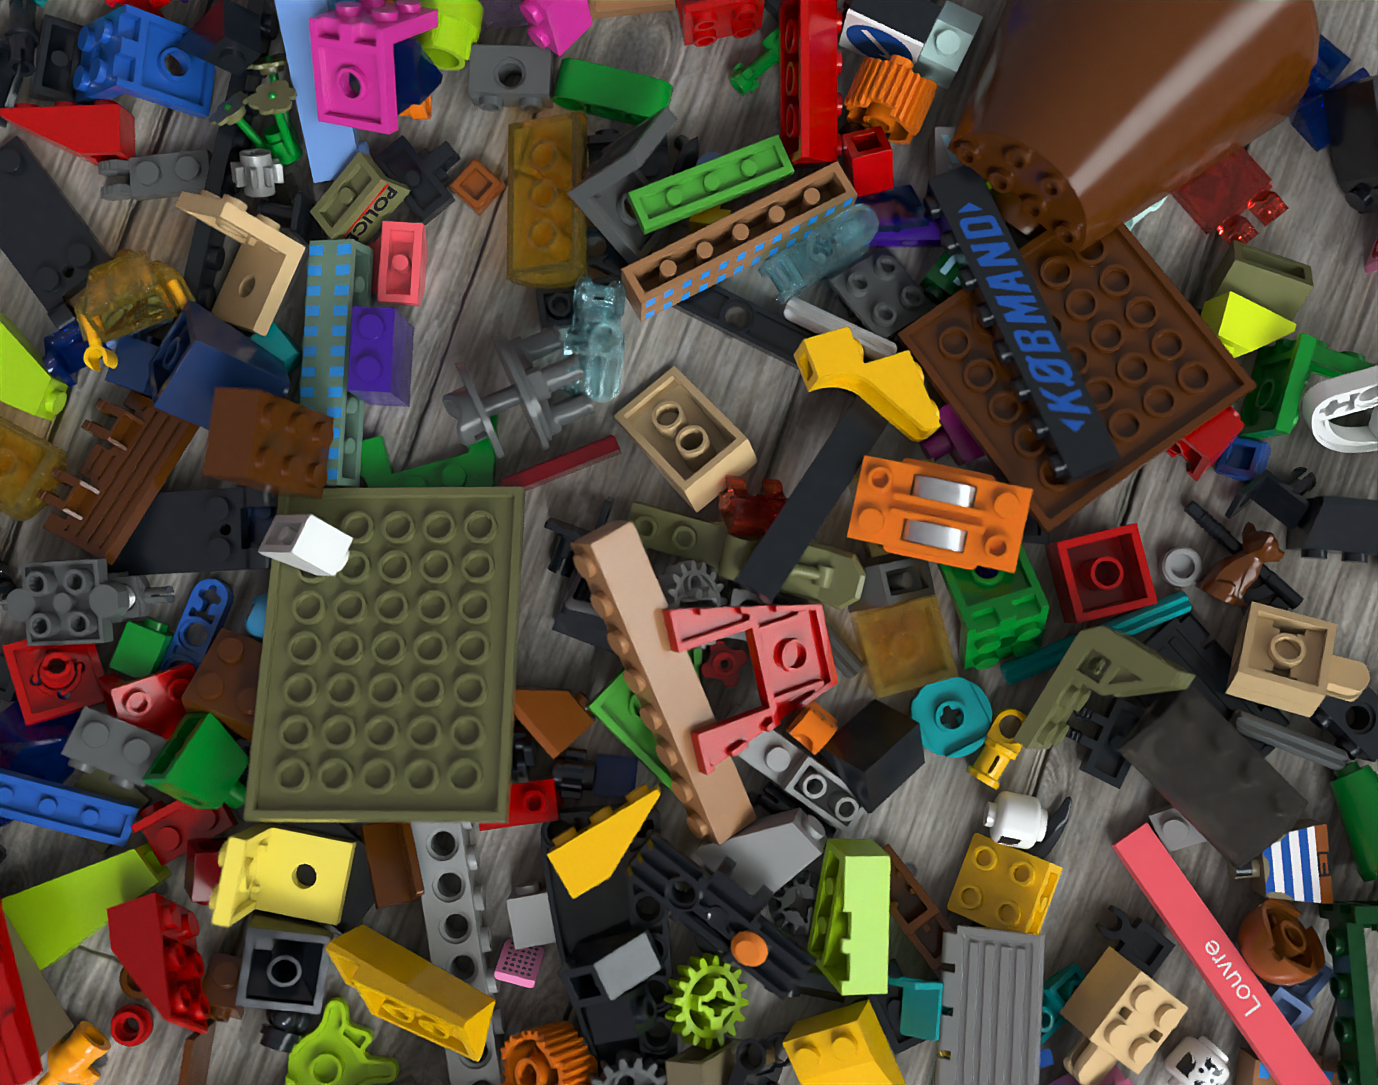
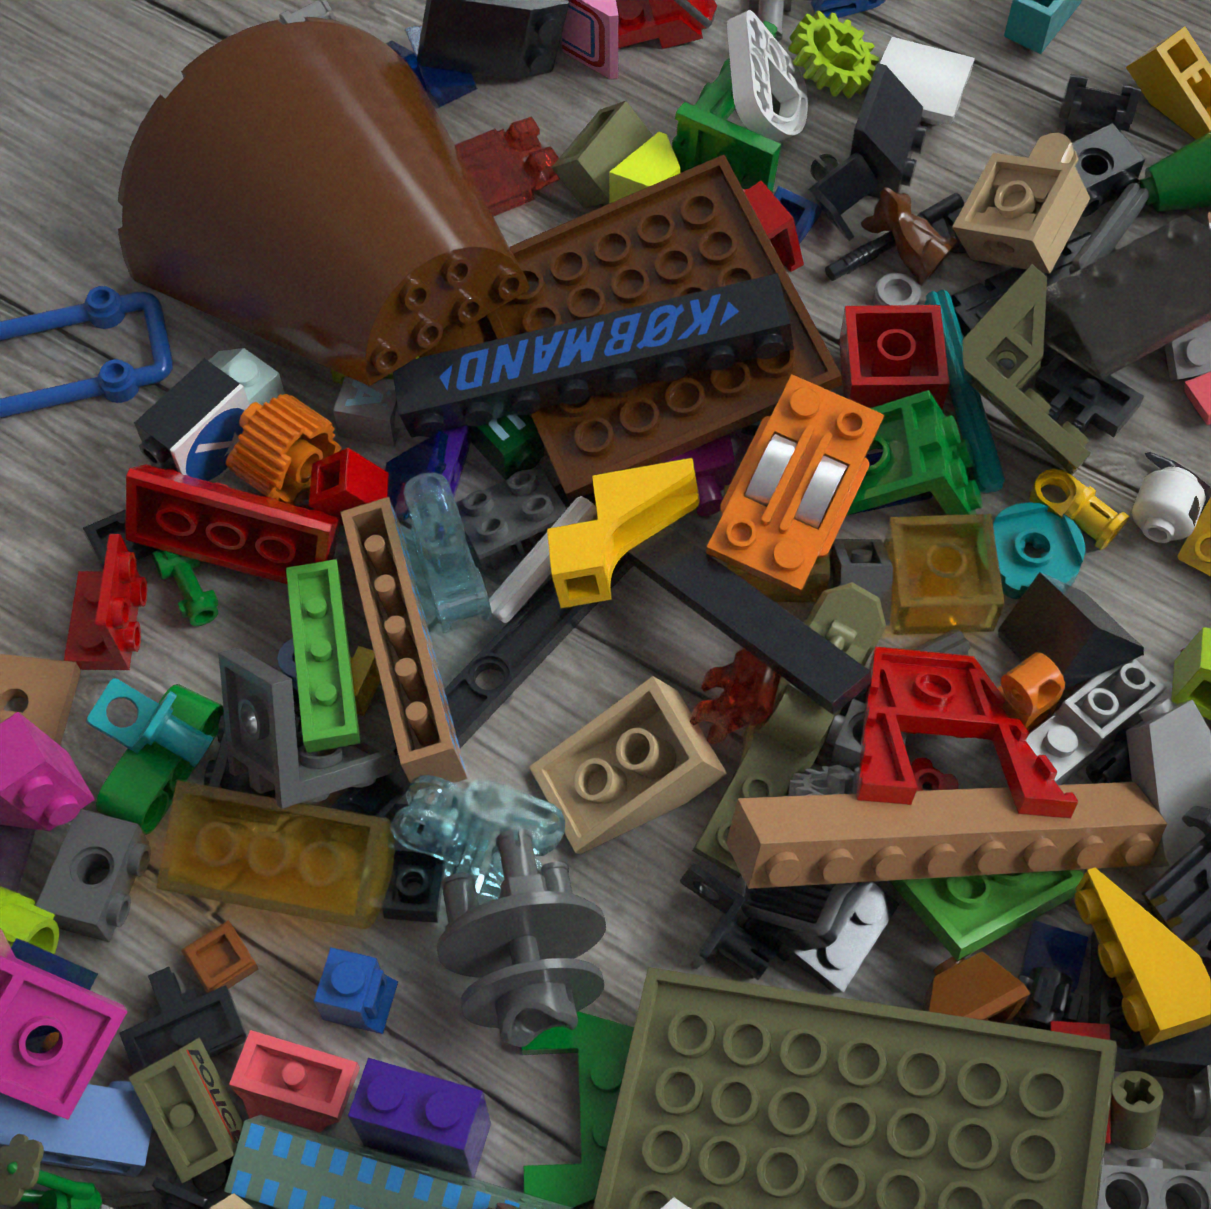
camera: 75 degrees left, 25 degrees down
(470, 287) = (355, 991): none -> blue window
(508, 845) = (1135, 1109): none -> olive piece
(564, 464) = (625, 923): dark red tile -> none
(623, 77) = (152, 724): none -> teal bracket

